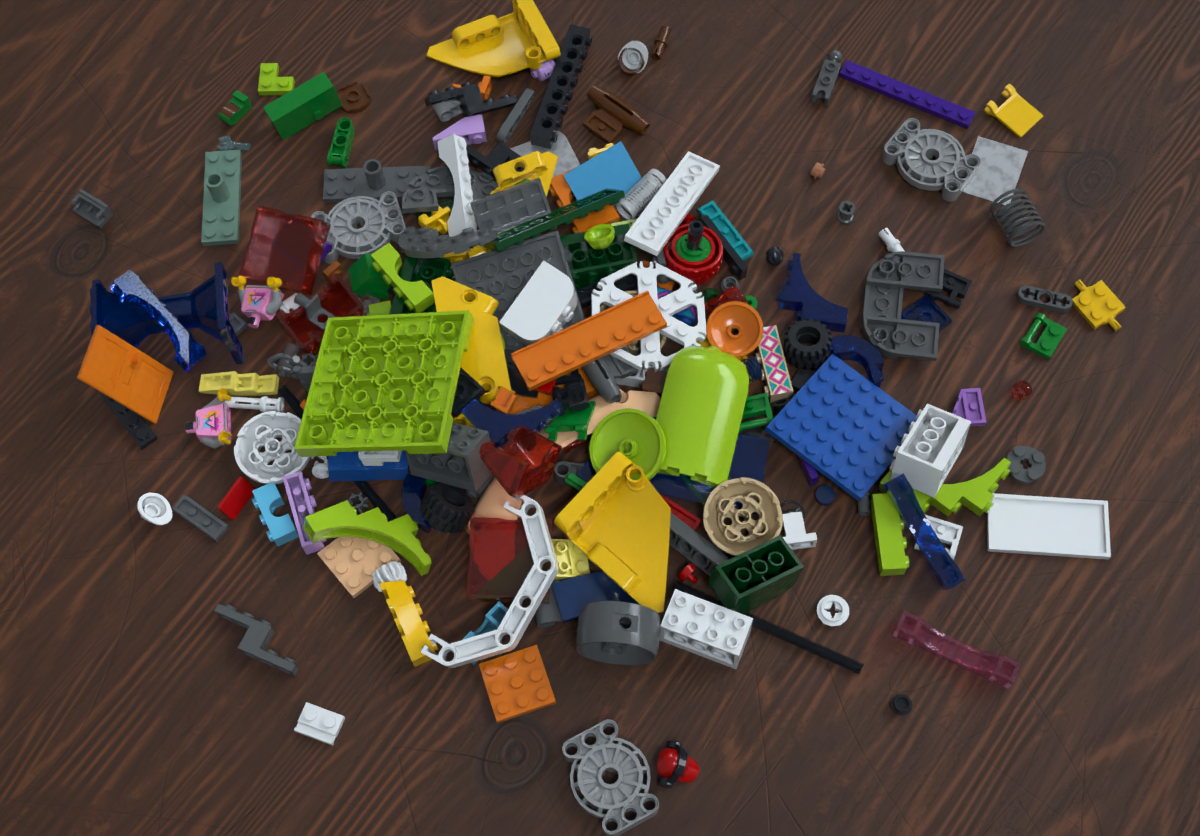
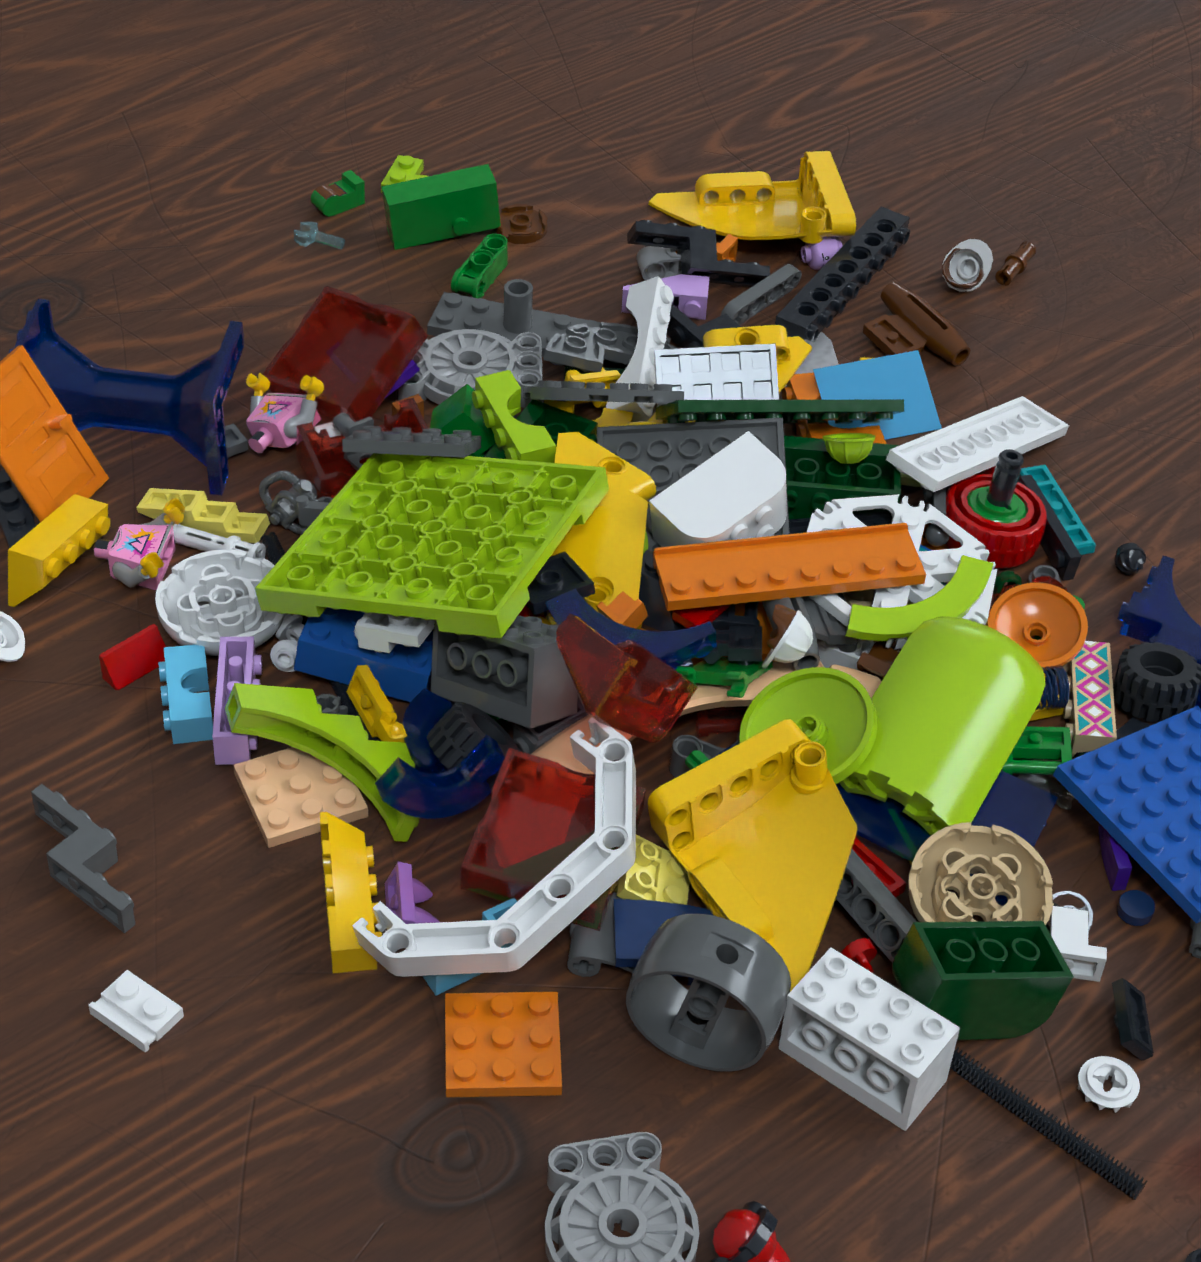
camera: 10 degrees right, 20 degrees down
(91, 208) = (77, 257): dark grey hinge -> none
(132, 289) = (92, 339): clear blue arch -> none
(163, 436) = (54, 545): none -> yellow wedge
(200, 518) = (66, 672): dark grey tile -> none
(221, 198) = (277, 289): sand green plate -> none
(347, 310) = (404, 442): none -> dark grey plate
(383, 496) = (374, 706): none -> yellow hinge
(389, 572) = (344, 808): white gear -> none
(436, 610) = (404, 892): none -> medium lavender tile
(441, 547) = (445, 792): none -> clear blue arch
(603, 392) = (790, 638): none -> white piece
(645, 192) = (950, 413): white piece -> none
(682, 338) = (900, 622): none -> lime tile
(837, 569) = (1132, 1019): none -> black plate

